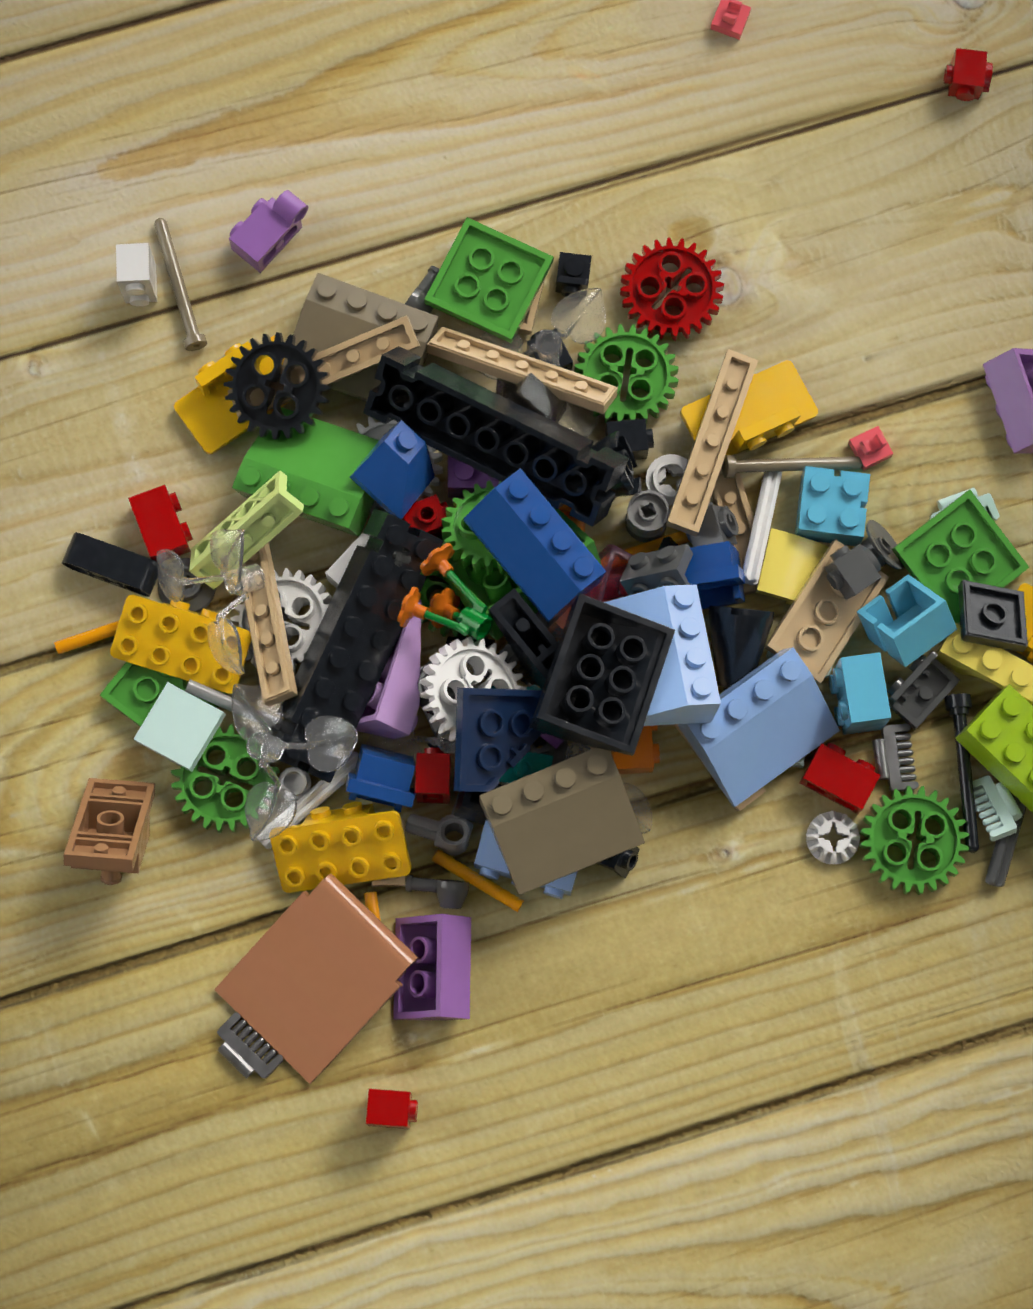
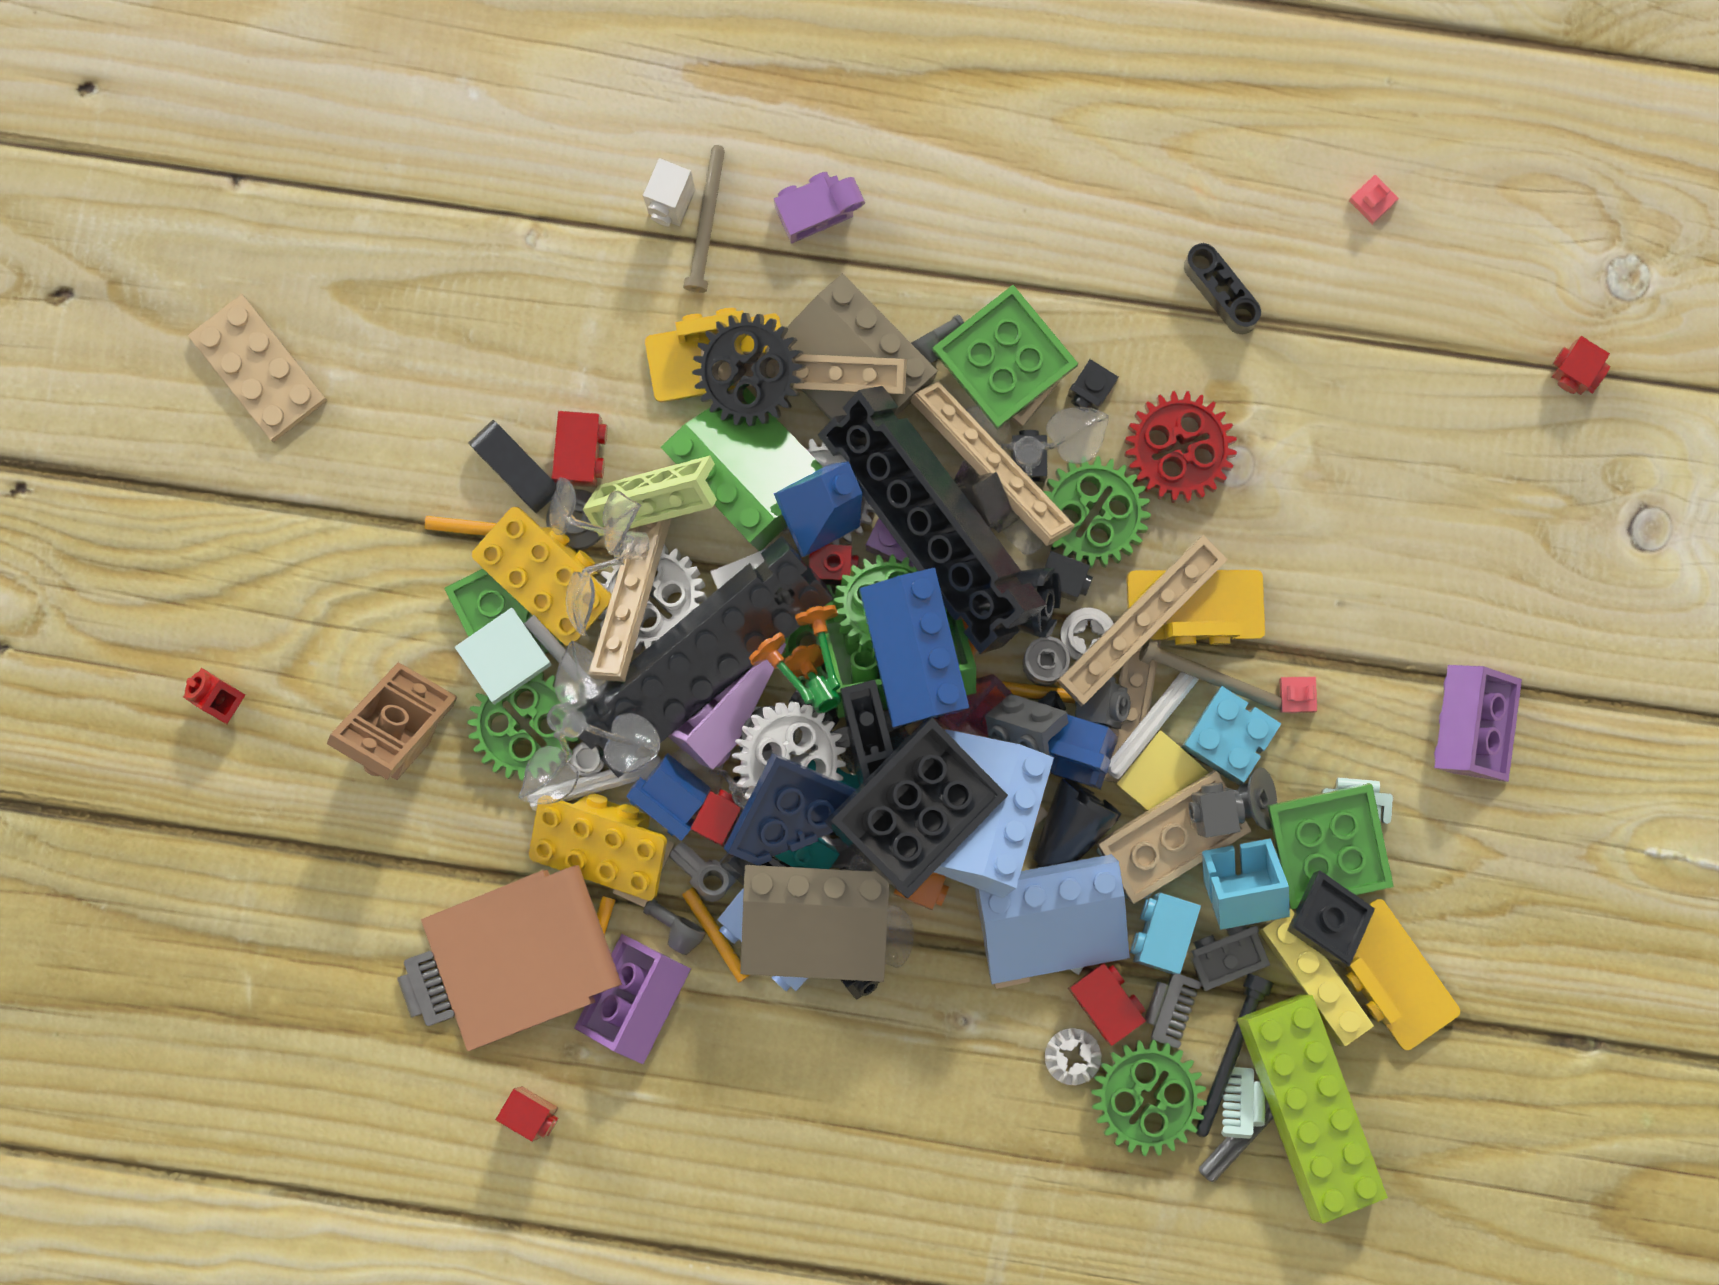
camera: 30 degrees right, 5 degrees up
(642, 134) = (1224, 277): none -> black beam

